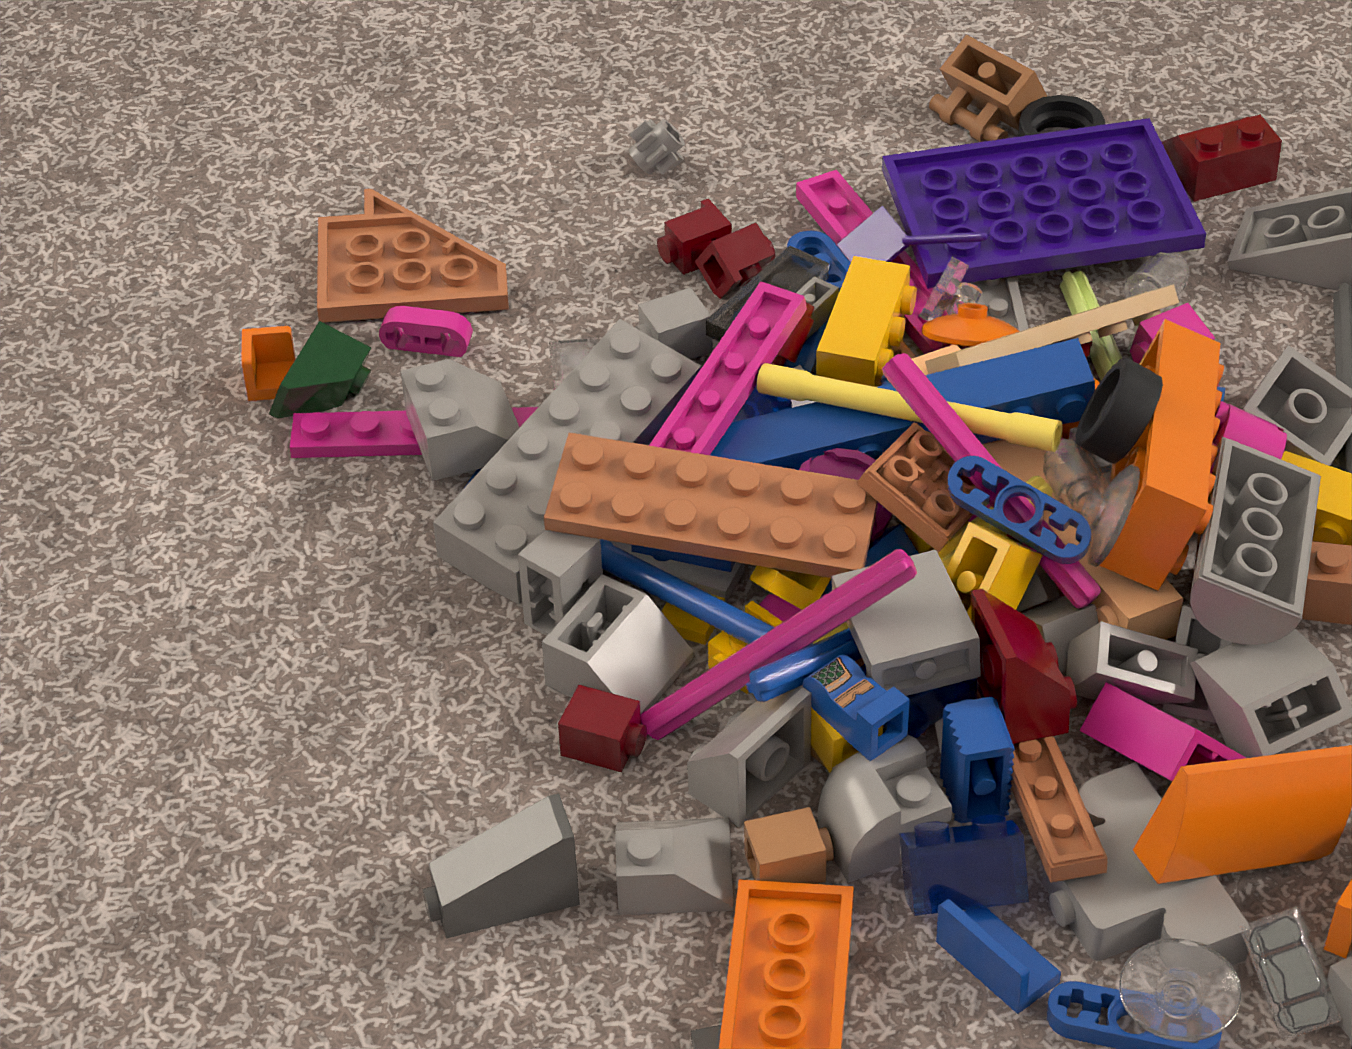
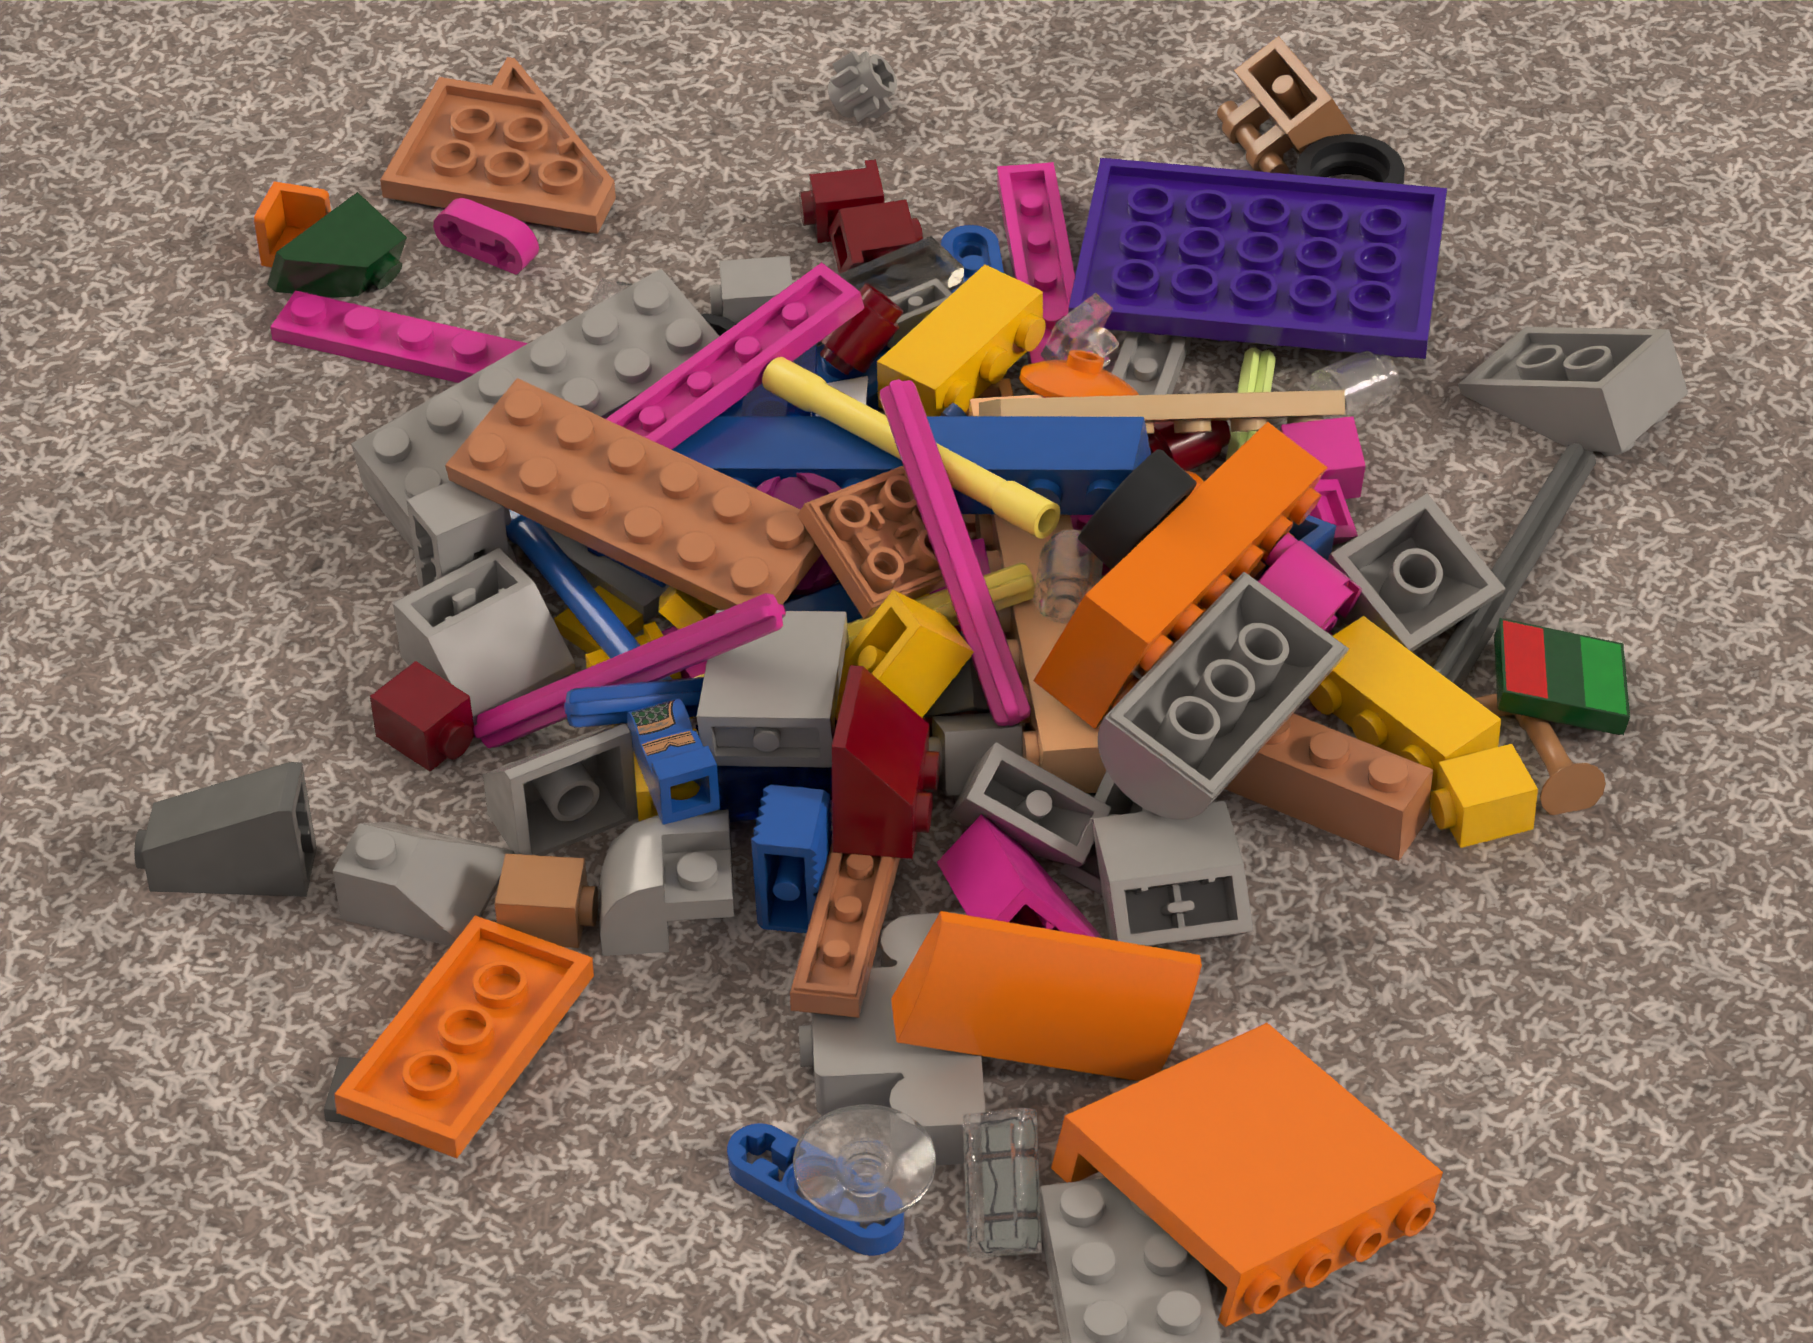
camera: 20 degrees right, 0 degrees up
(456, 416) = (448, 330): light grey slope -> none
(884, 240) = (1048, 254): piece -> none
(967, 864) = (717, 968): clear blue brick -> none
(978, 500) = (962, 565): blue beam -> none
(995, 955) = (708, 1073): blue panel -> none
(1108, 512) = (1052, 619): clear dish -> none
(1225, 157) = (1526, 259): dark red slope -> none

